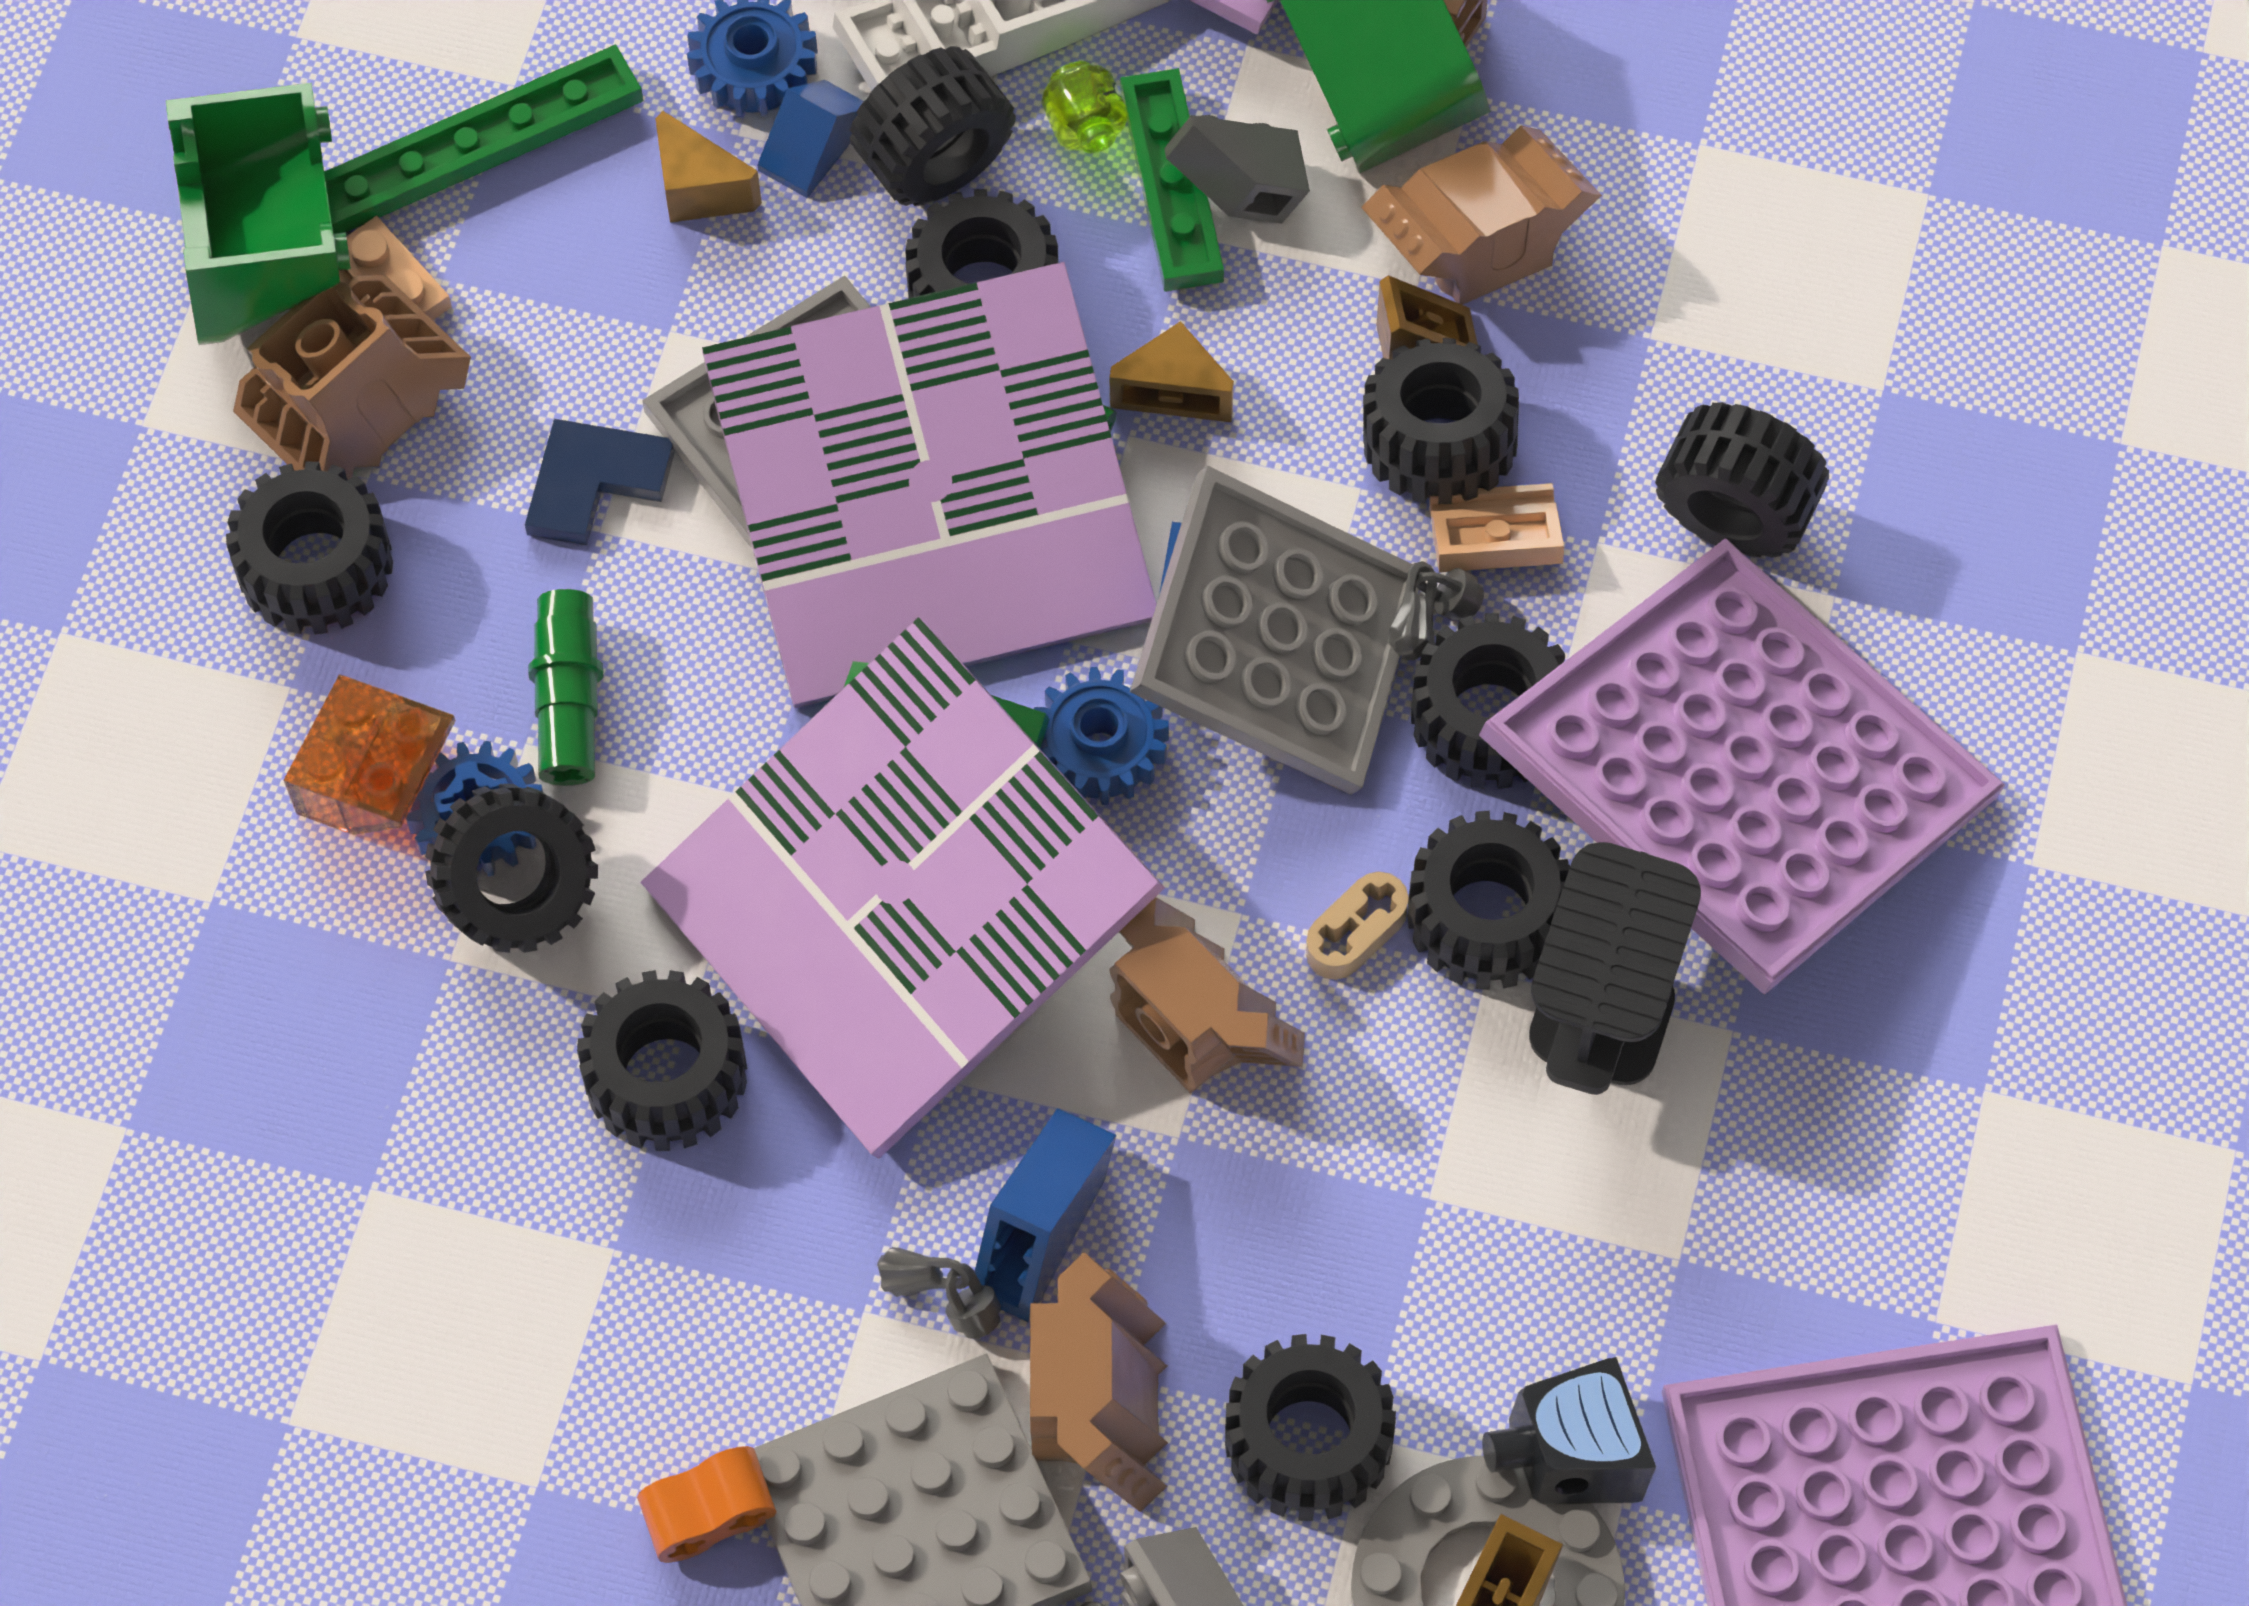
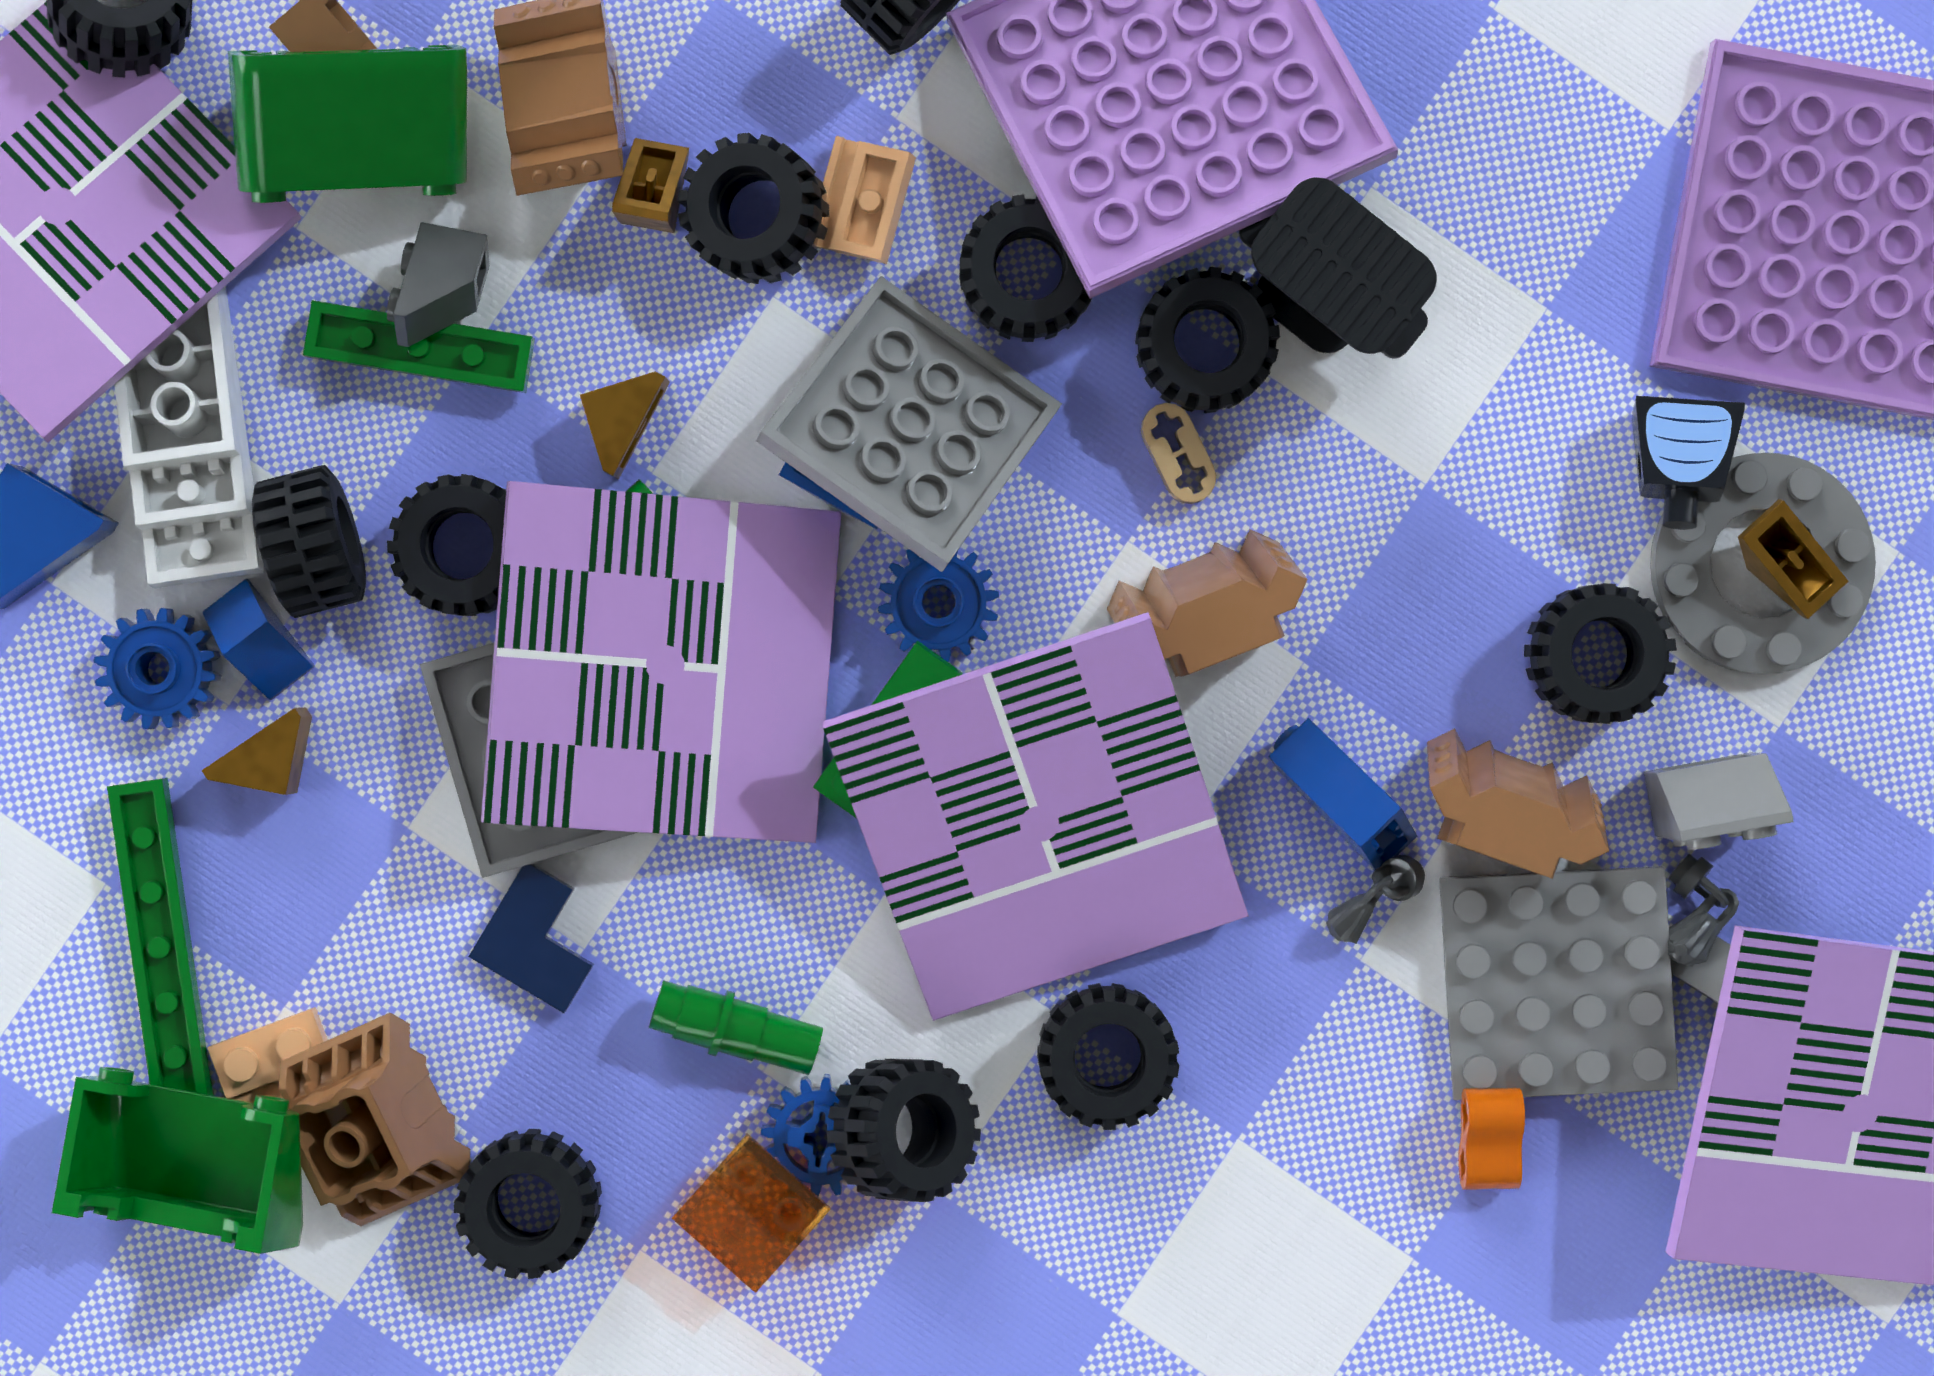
camera: 65 degrees left, 25 degrees up
(1084, 106) = (319, 396): clear neon green head -> none
(1454, 598) = (913, 261): dark grey piece -> none

